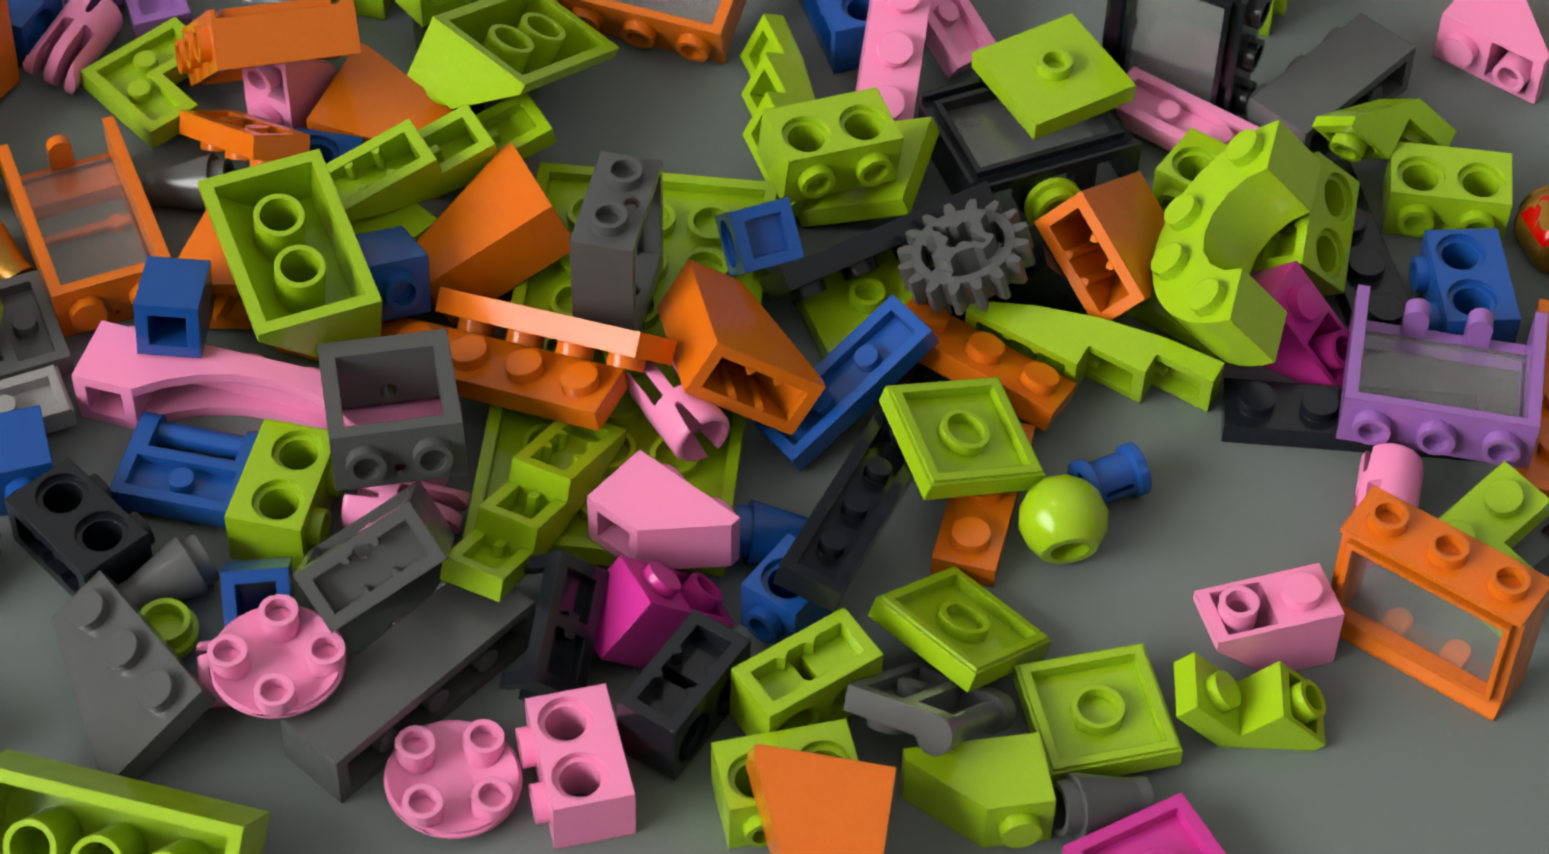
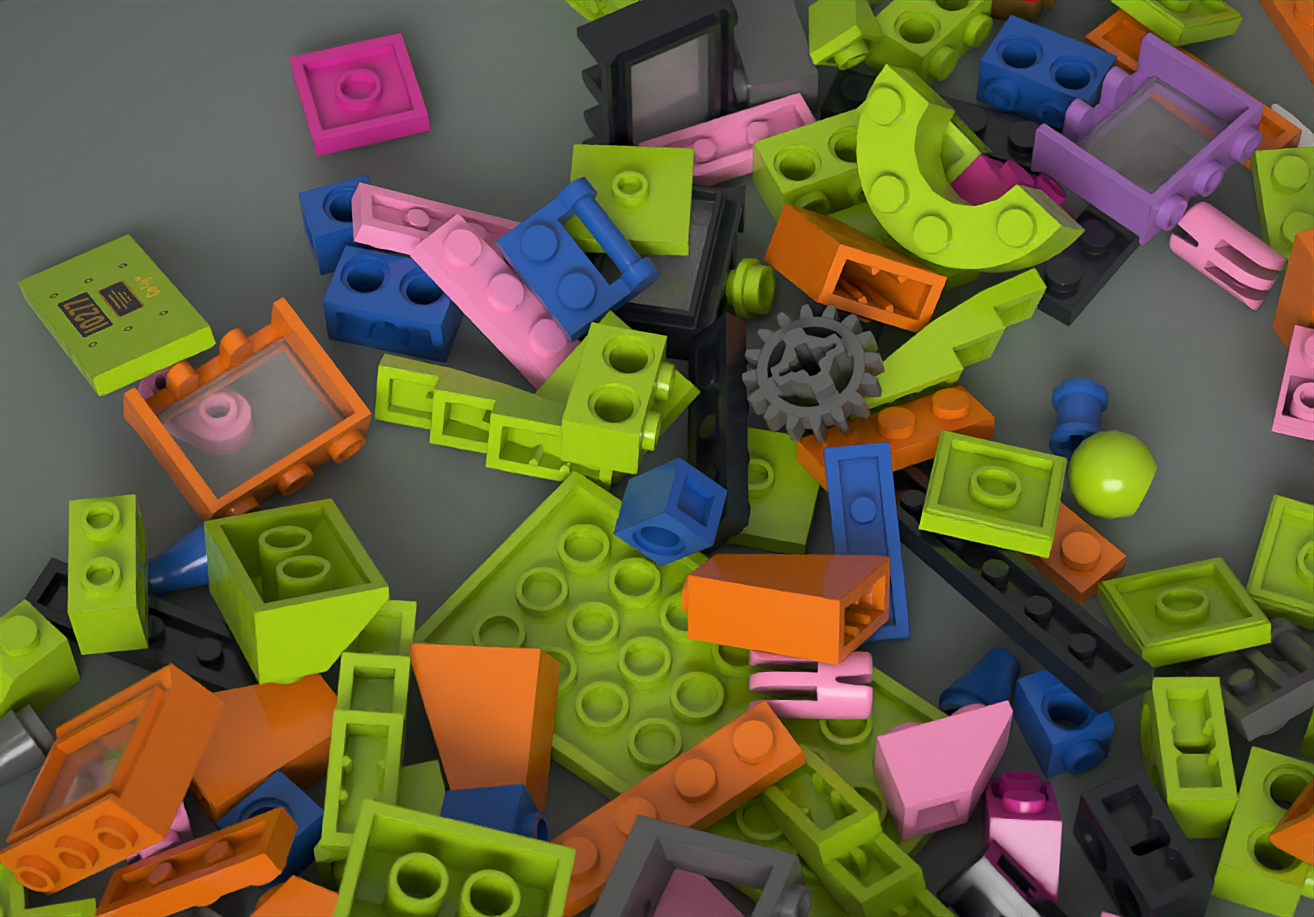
camera: 55 degrees left, 5 degrees up
(575, 336) = (648, 744): orange plate -> none
(618, 242) = (614, 615): dark grey window -> none
(939, 62) = (562, 273): none -> blue plate

